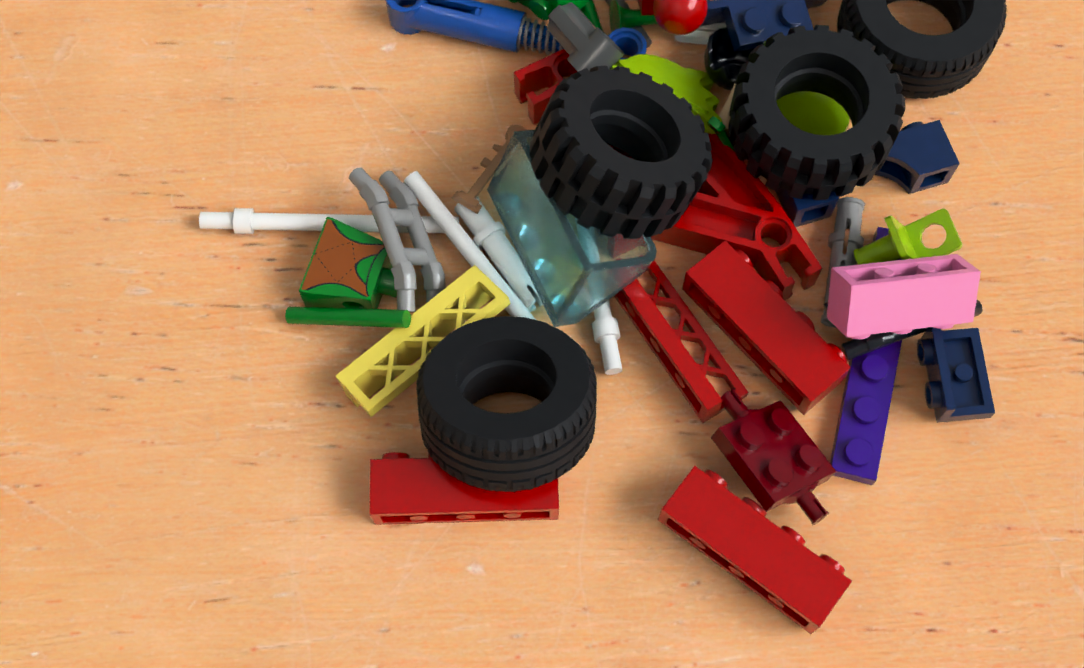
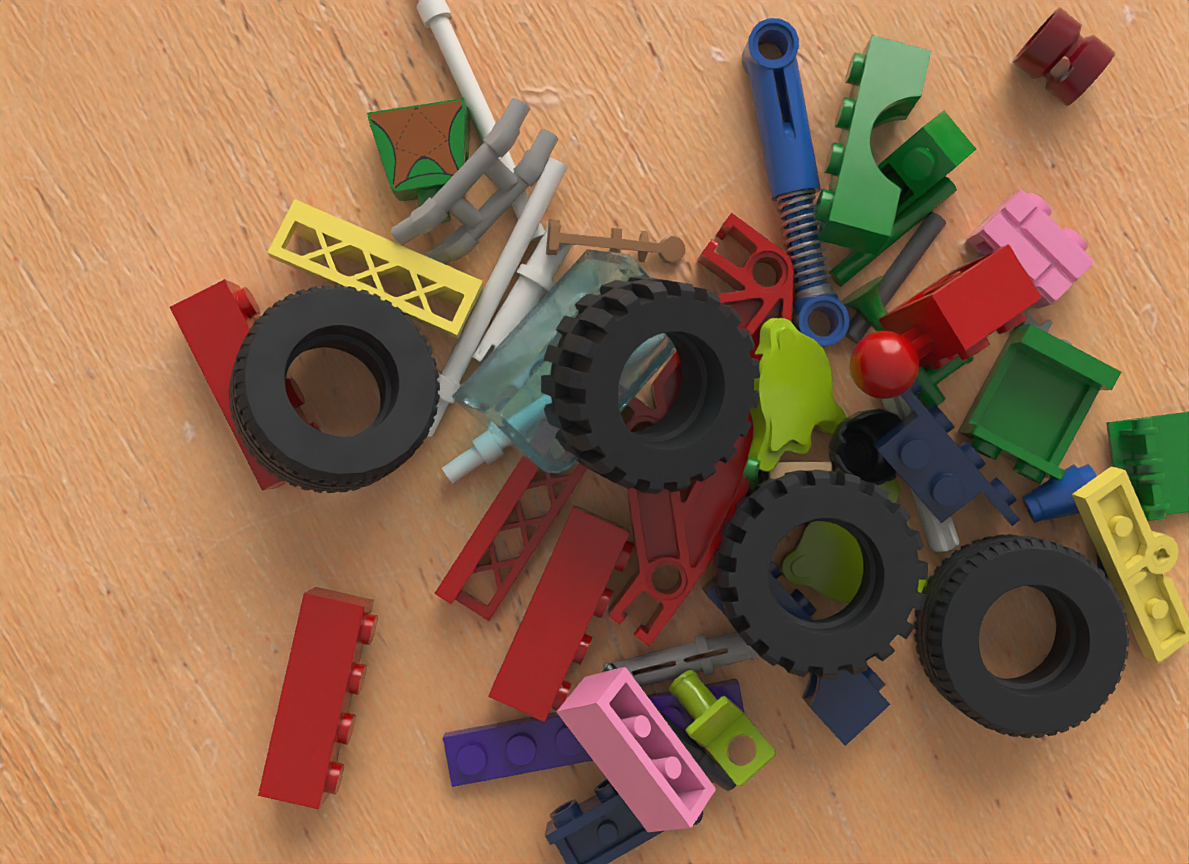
camera: 65 degrees right, 20 degrees up
(348, 317) = (369, 178): green bar -> none
(581, 39) = (788, 286): dark grey piece -> none
(773, 456) = (423, 676): dark red plate -> none

